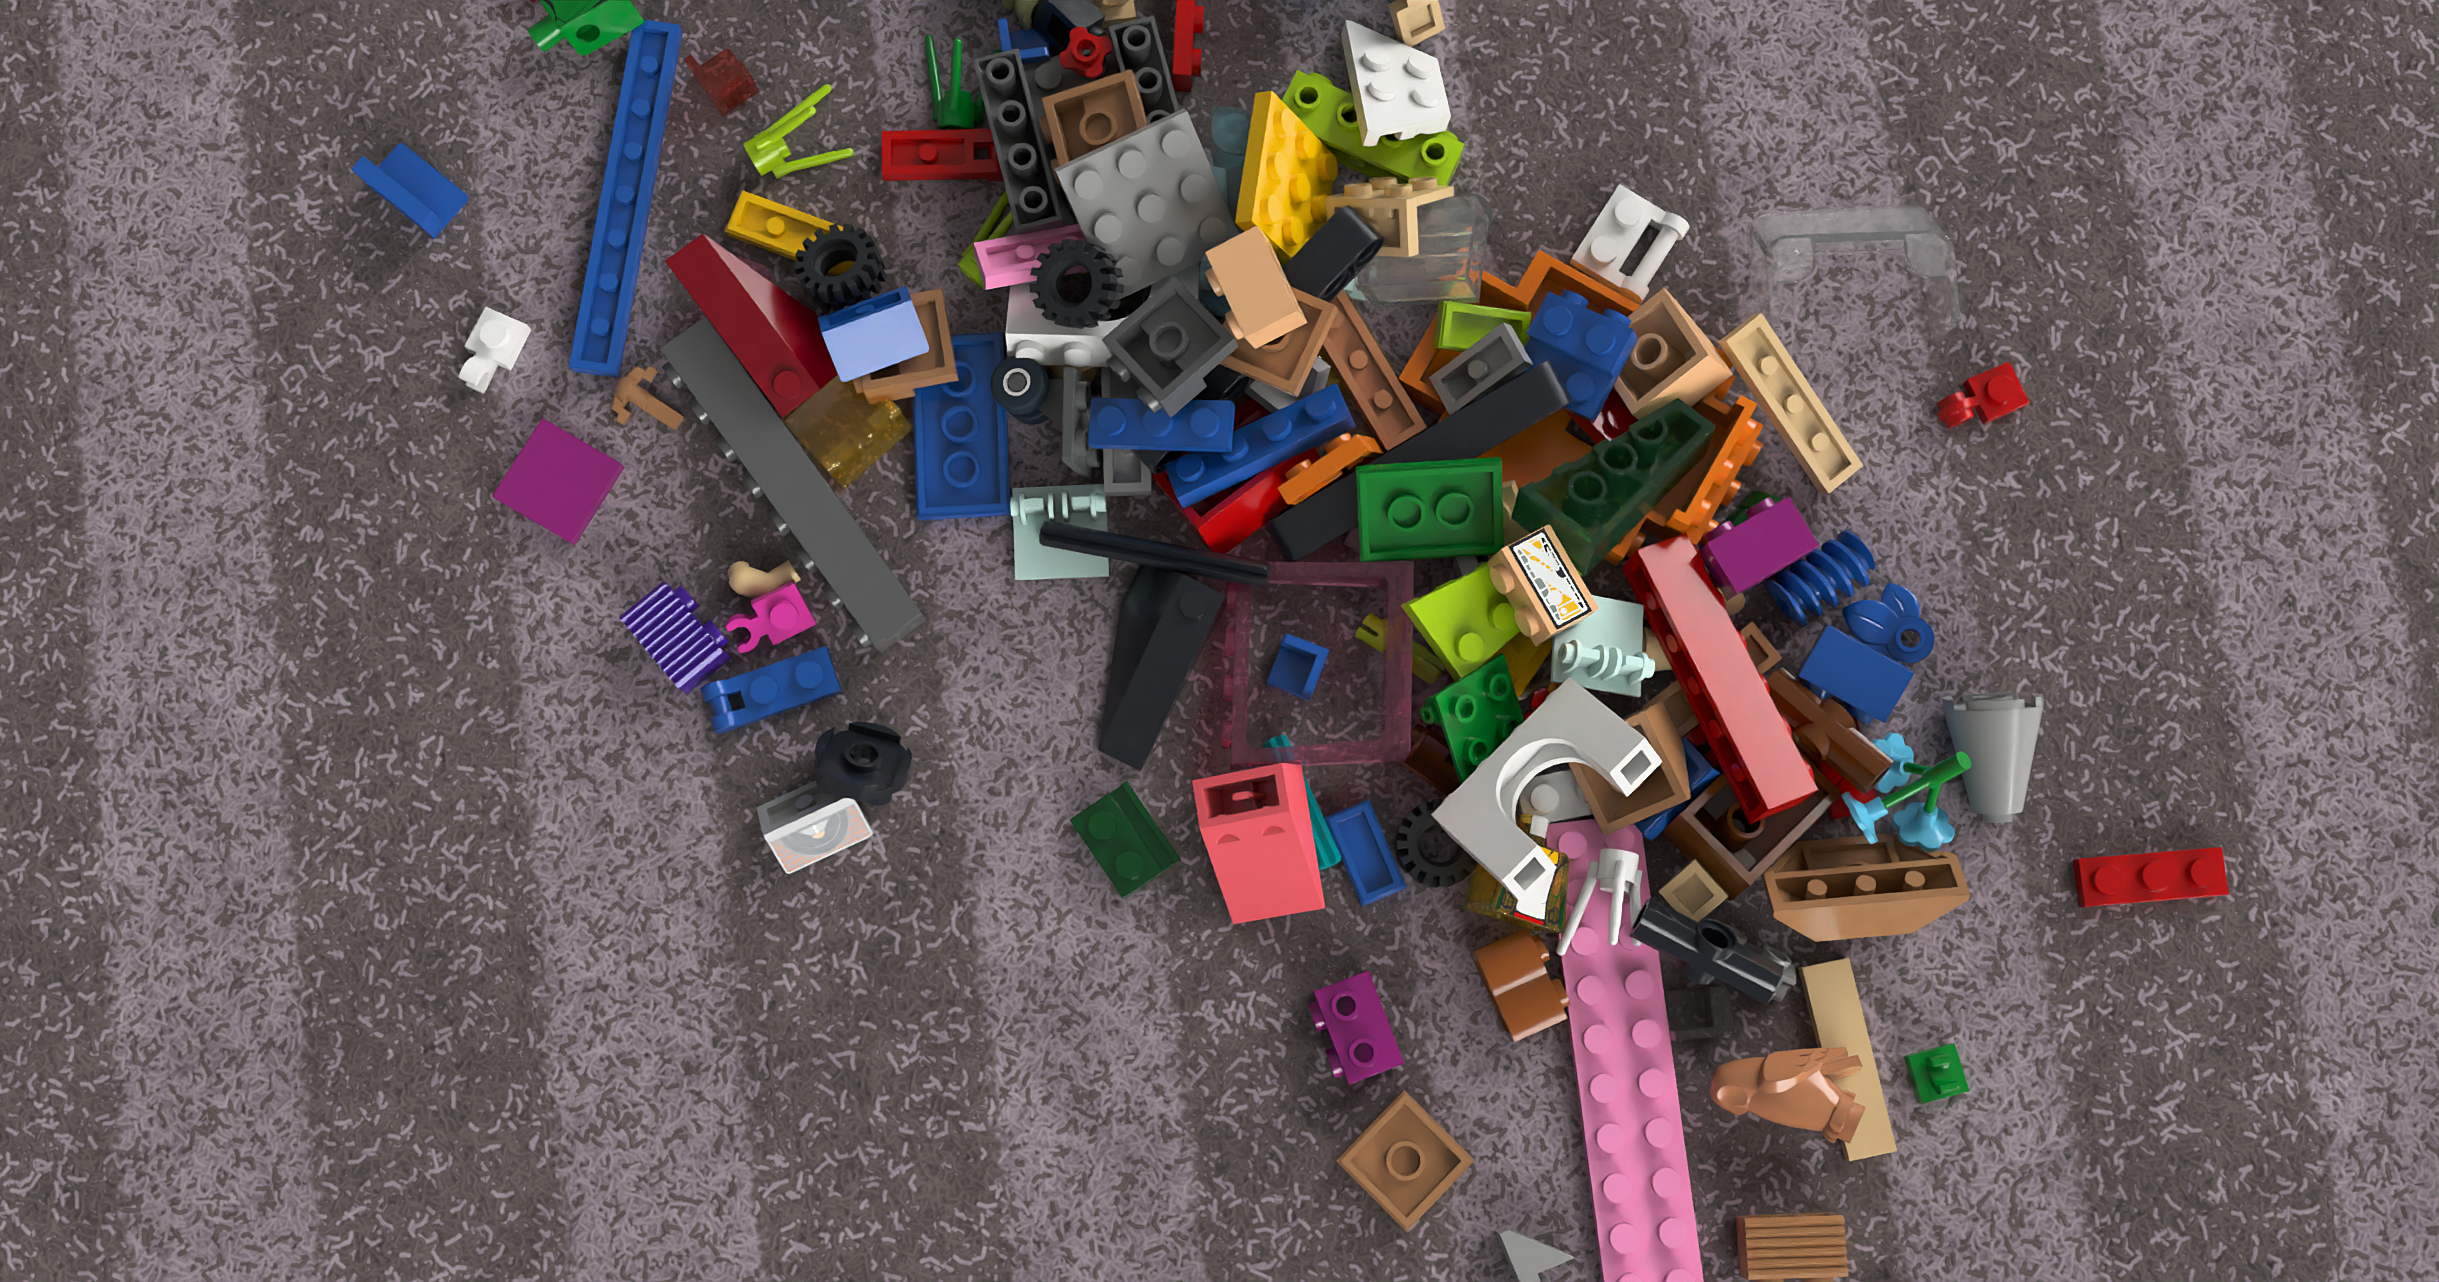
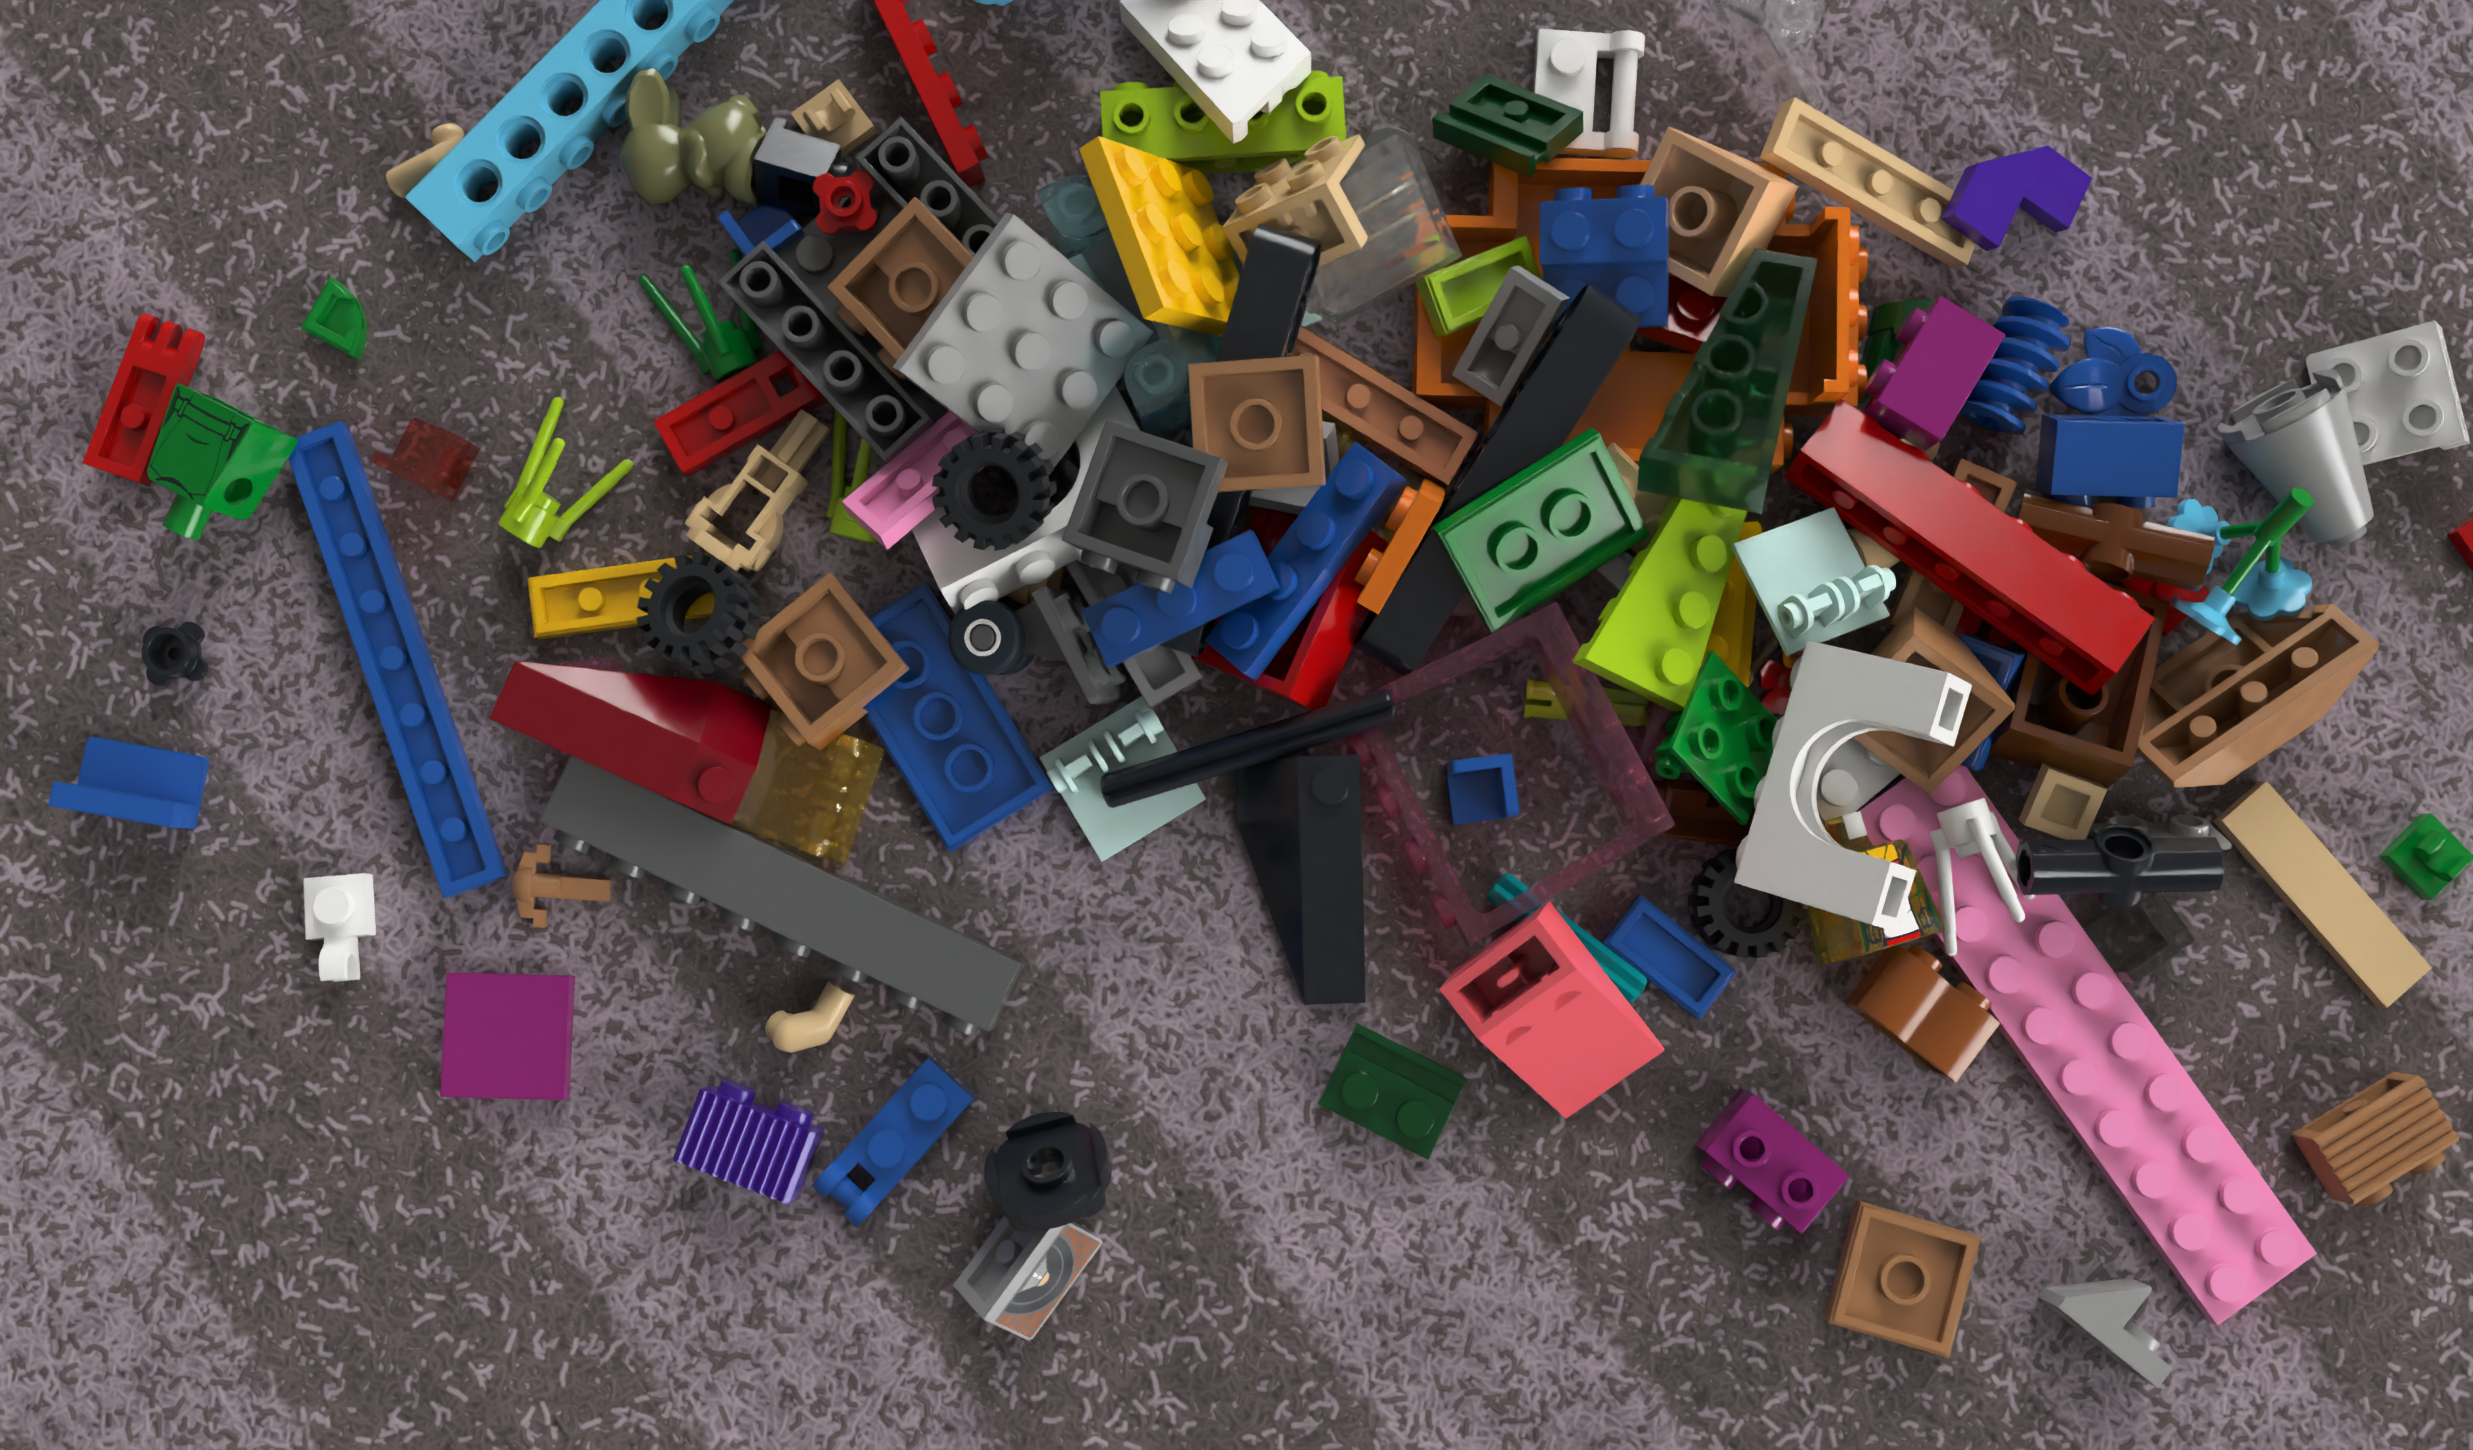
camera: 30 degrees left, 5 degrees up
(477, 109) = (157, 650): none -> black plate
(778, 613) = (852, 1052): dark pink plate -> none
(873, 334) = (782, 670): panel -> none
(941, 209) = (776, 477): none -> tan piece
(1254, 287) = (1211, 385): light nougat brick -> none
(1541, 585) = (1722, 553): brick -> none
(1560, 234) = (1508, 125): none -> dark green plate
(1793, 1090) = (2291, 967): nougat animal -> none
(1906, 461) = (1993, 190): none -> dark purple tile
(1990, 393) = (2083, 52): red plate -> none
(2086, 740) = (2398, 392): none -> white bracket

